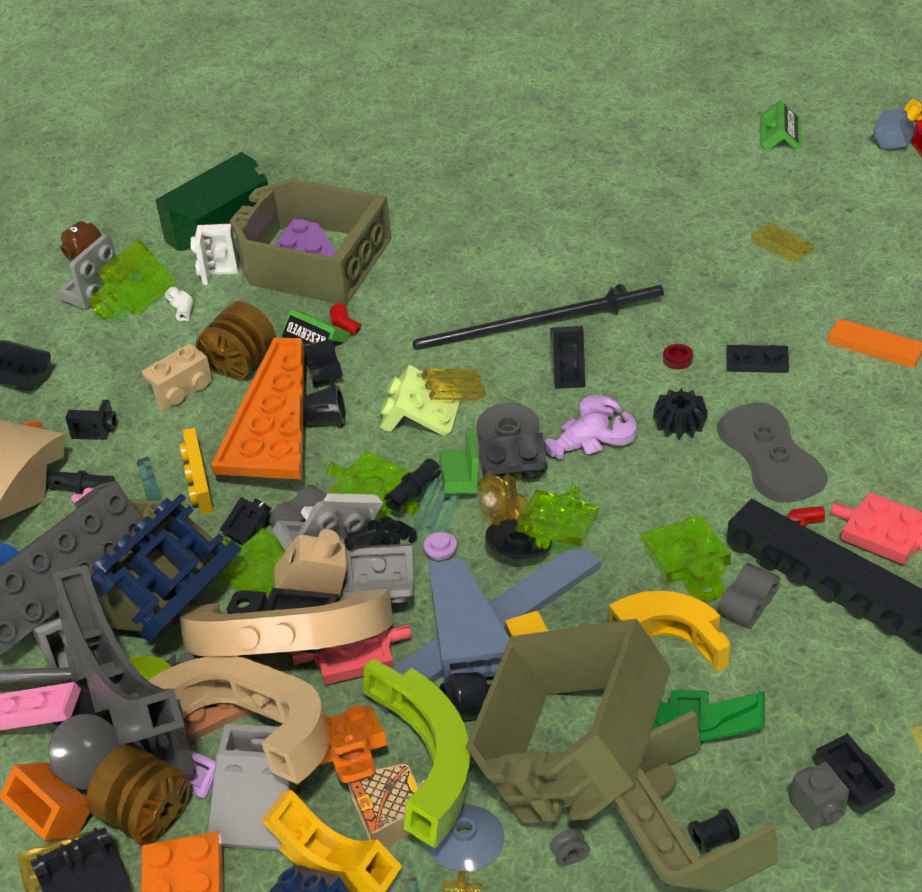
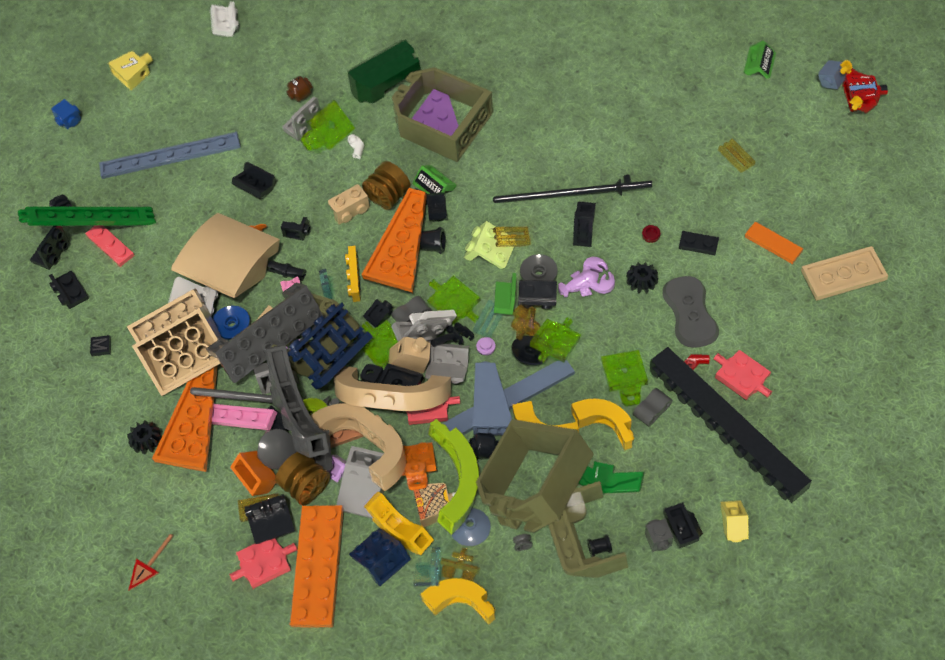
camera: 10 degrees right, 15 degrees up
(214, 251) = (380, 112): white bracket -> none
(340, 318) = (451, 174): red arm -> none
(412, 485) = (476, 305): black pin -> none

